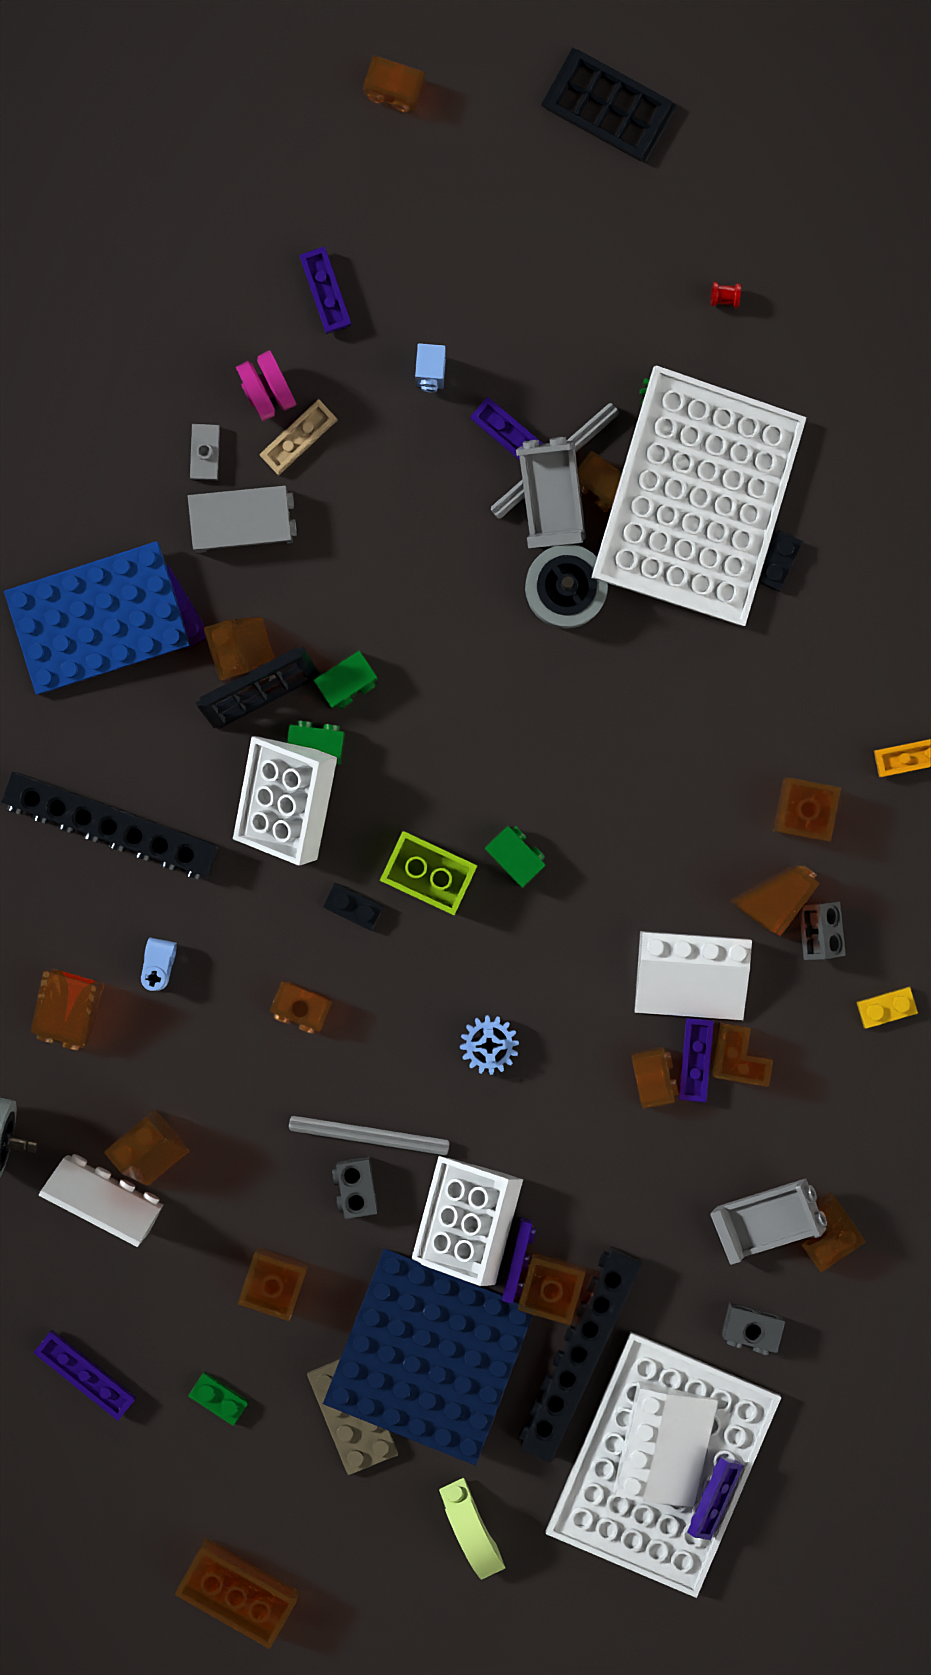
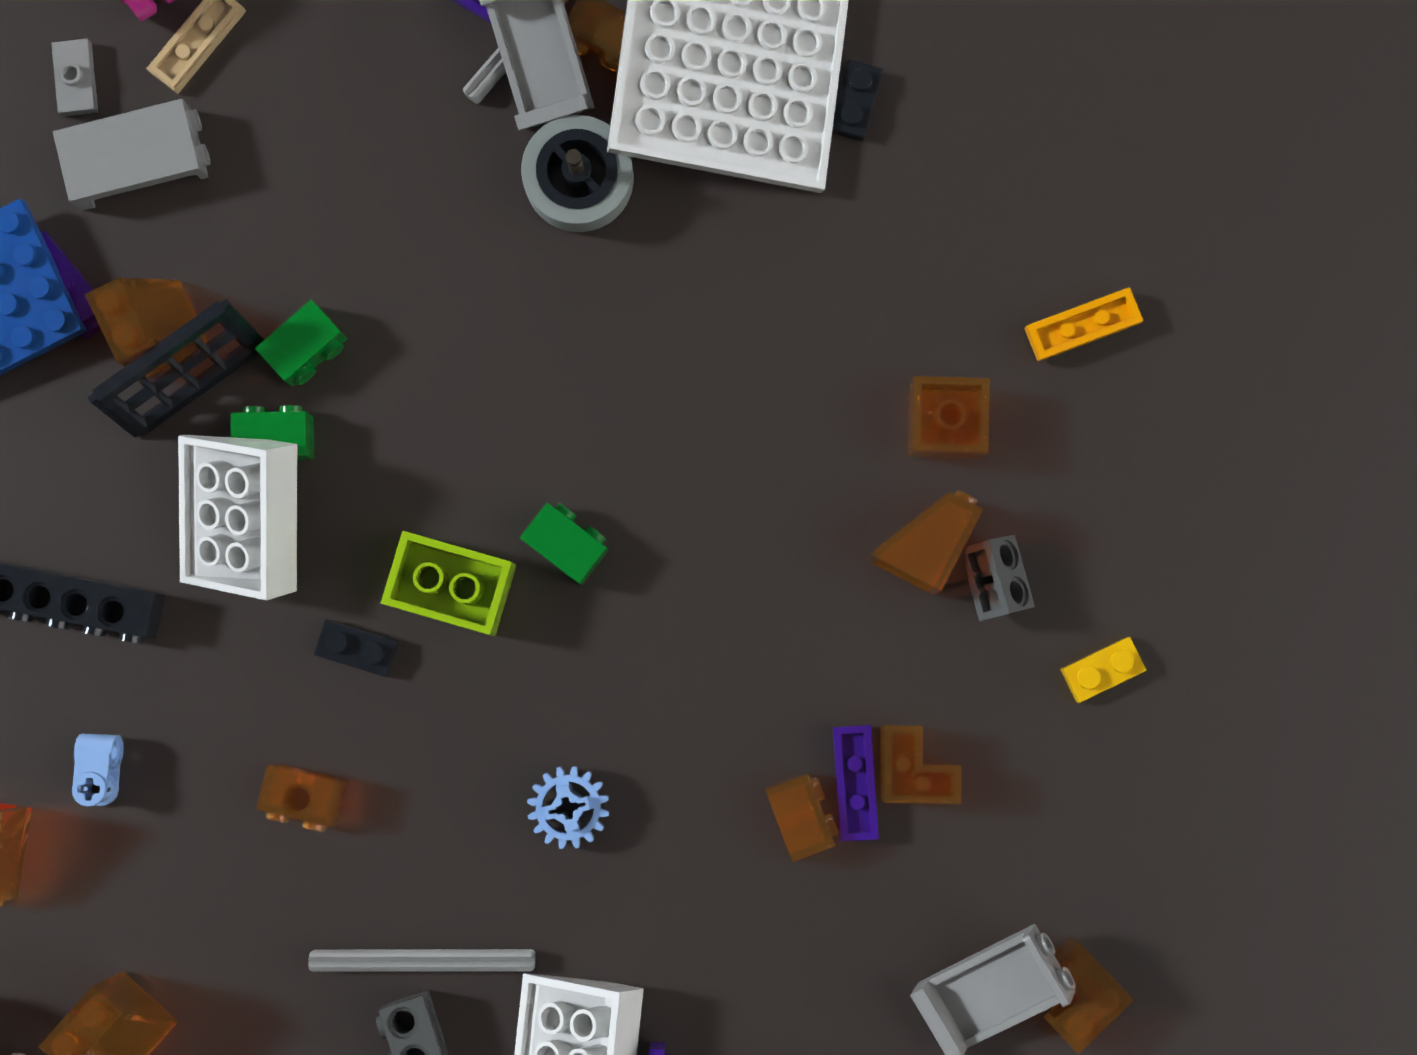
camera: 10 degrees left, 5 degrees down
(692, 975) = (832, 667): white slope -> none

